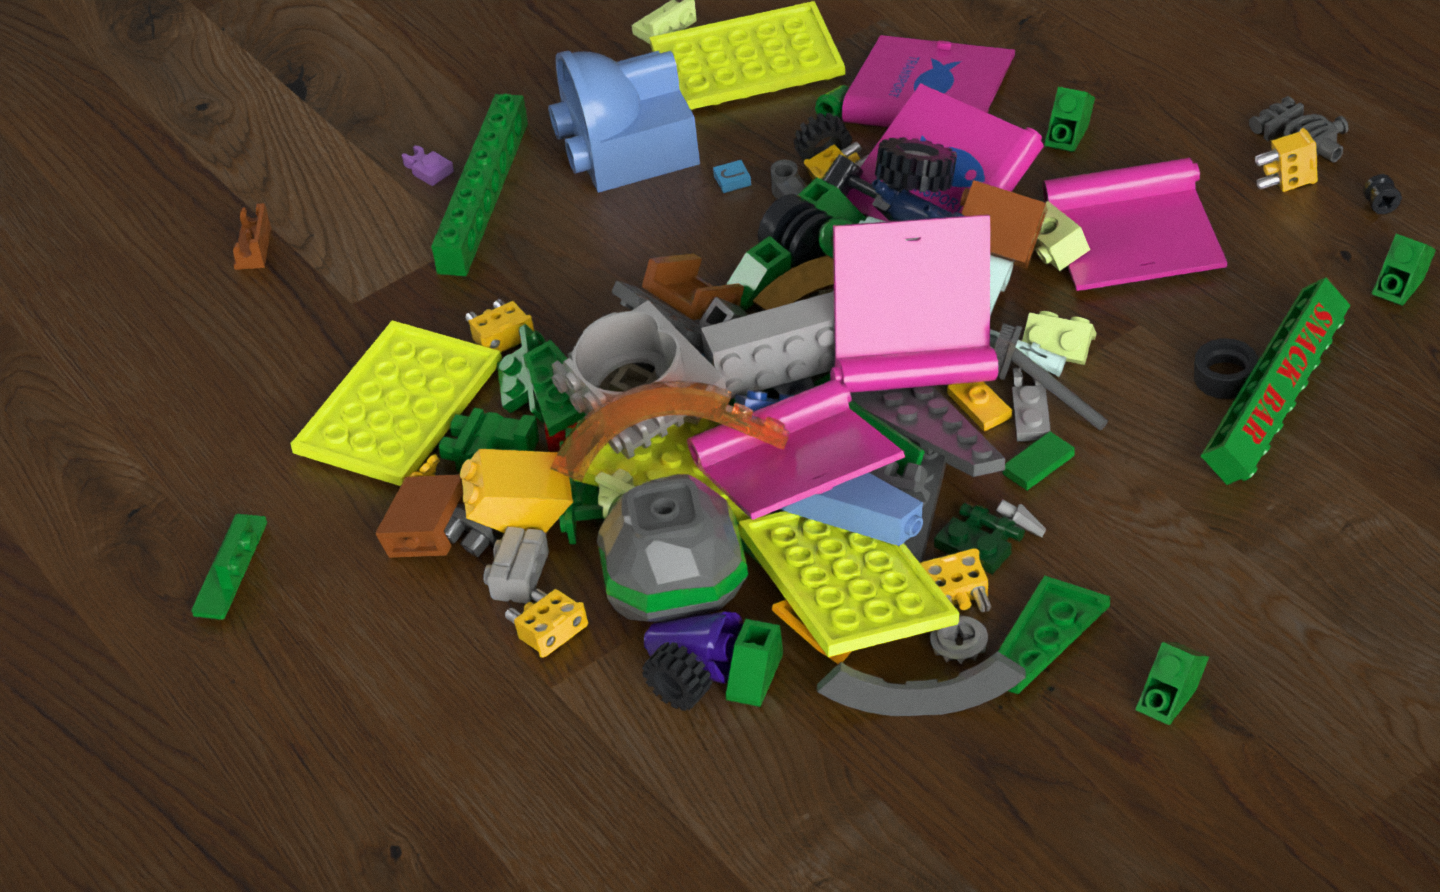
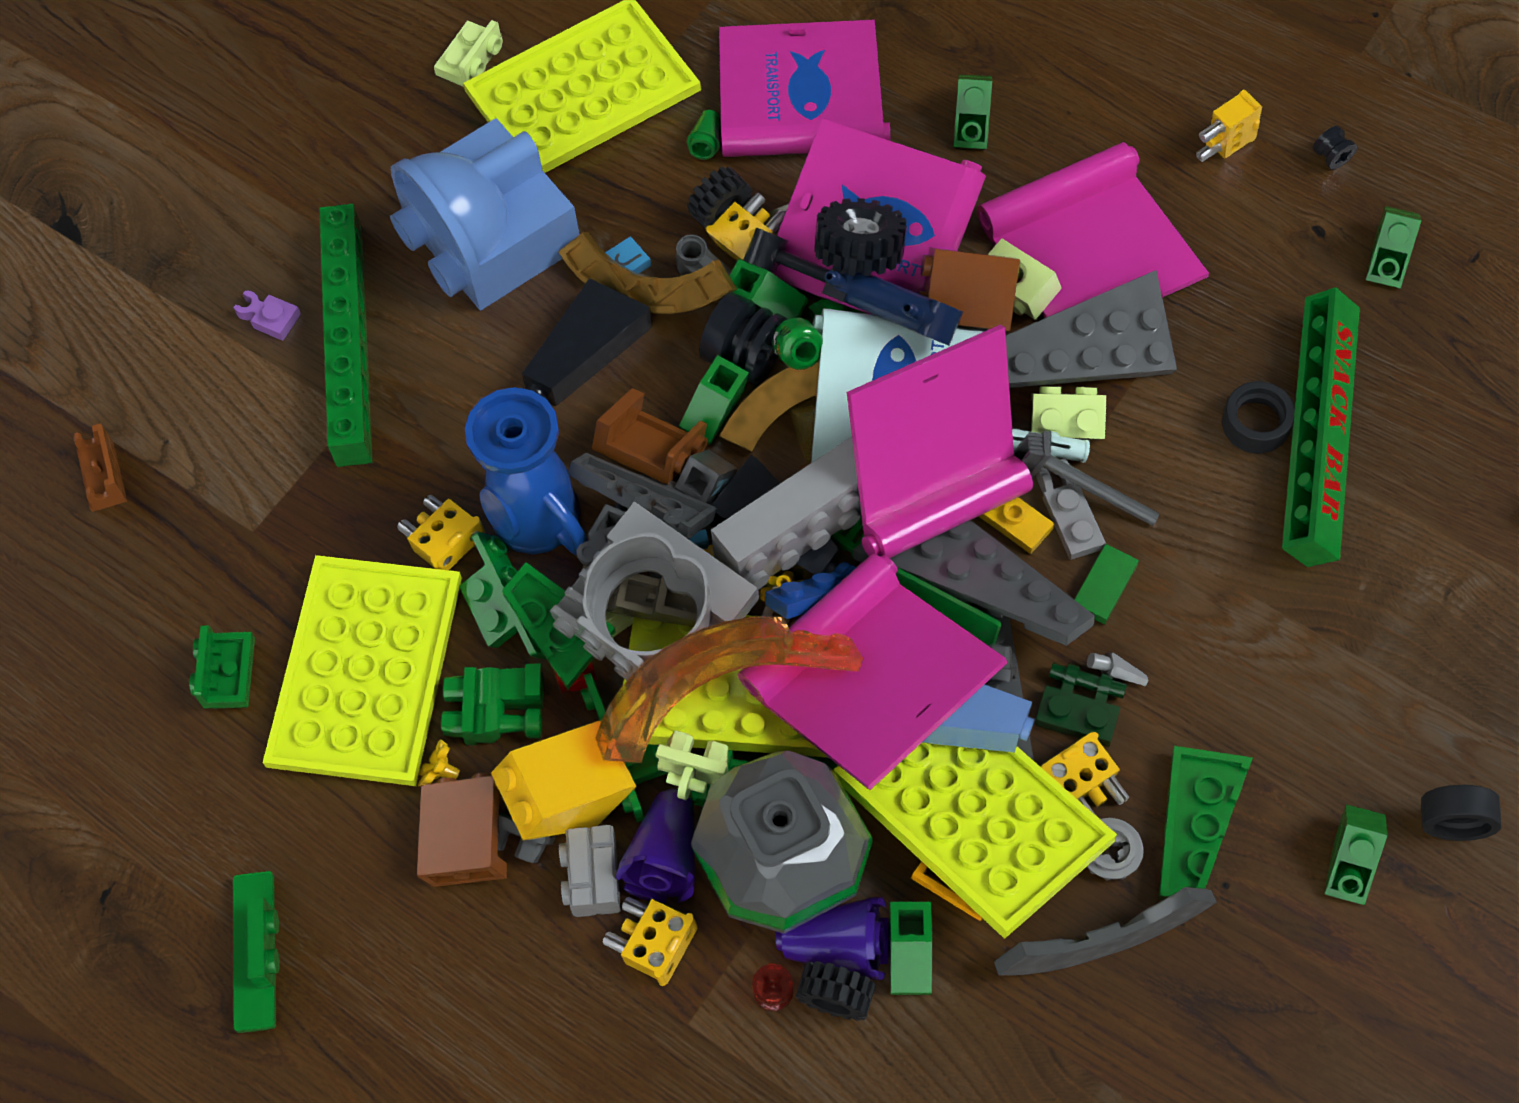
camera: 20 degrees left, 20 degrees up
(286, 379) = (222, 668): none -> green bracket
(571, 562) = (660, 854): none -> dark purple cone
(572, 278) = (526, 483): none -> blue piece
(628, 671) = (777, 994): none -> clear red wheel
(670, 221) = (585, 340): none -> black slope
(733, 195) = (660, 294): none -> pearl gold tile
(1106, 287) = (1098, 339): none -> dark grey wing
(1282, 647) = (1461, 812): none -> black tyre
(1289, 118) = (1227, 71): dark grey piece -> none

